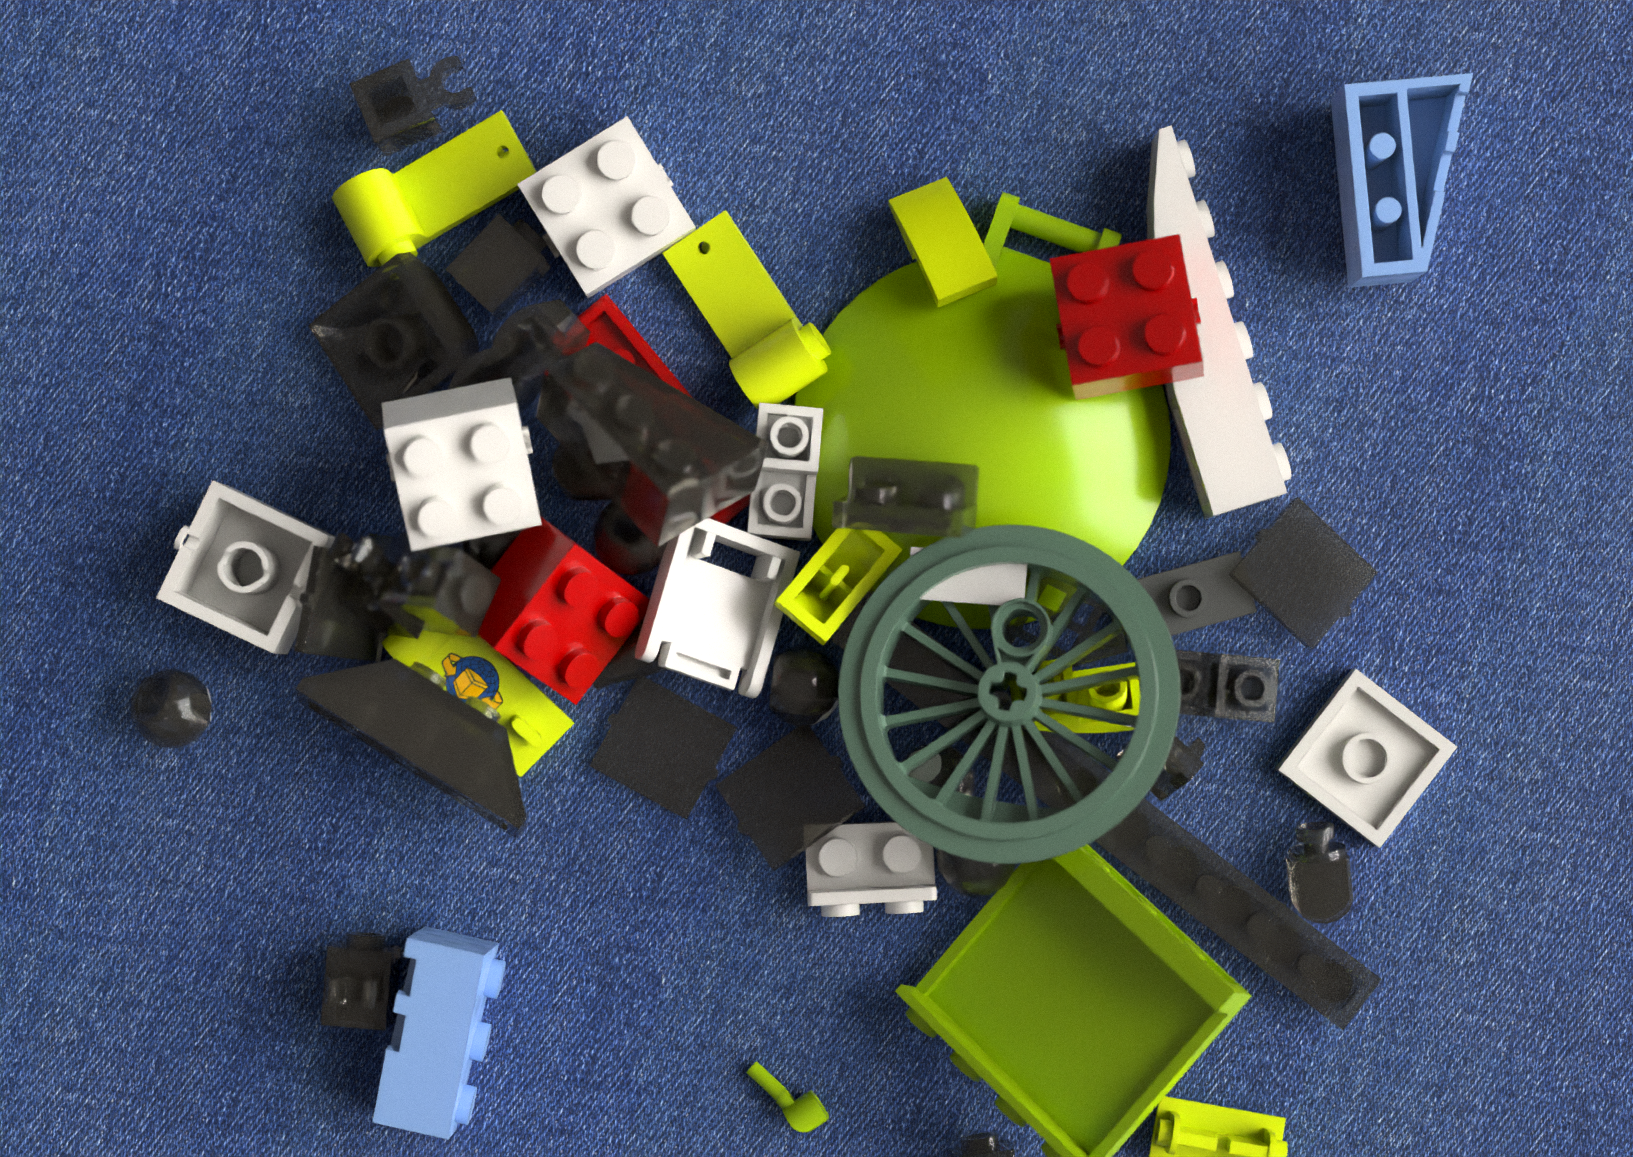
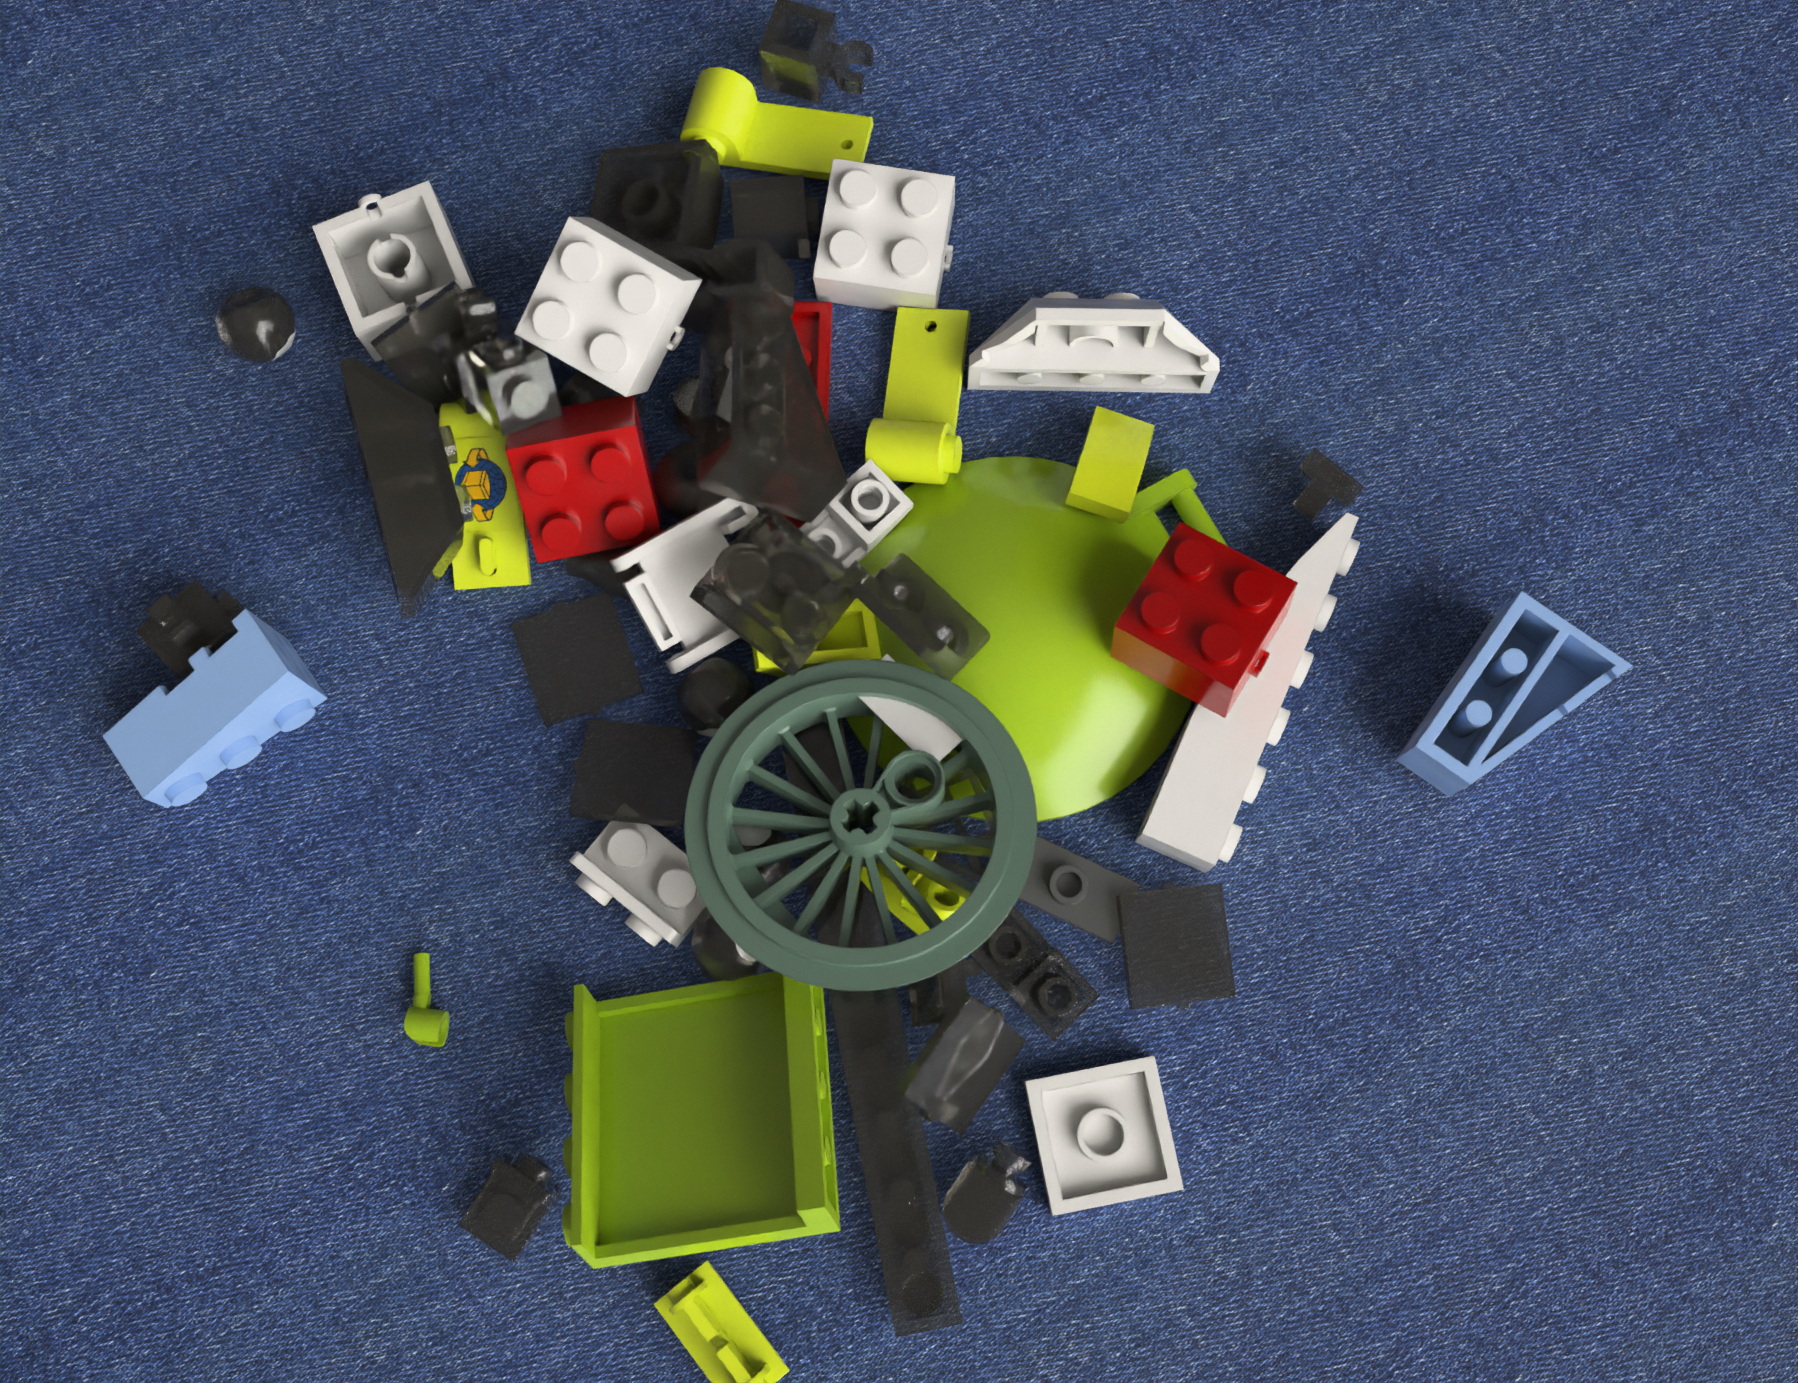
camera: 40 degrees right, 10 degrees down
(787, 570) = (776, 590): none -> clear smoke slope
(846, 154) = (1094, 348): none -> white wedge
(1120, 114) = (1326, 483): none -> clear smoke tile
(1224, 798) = (961, 1063): none -> clear smoke piece

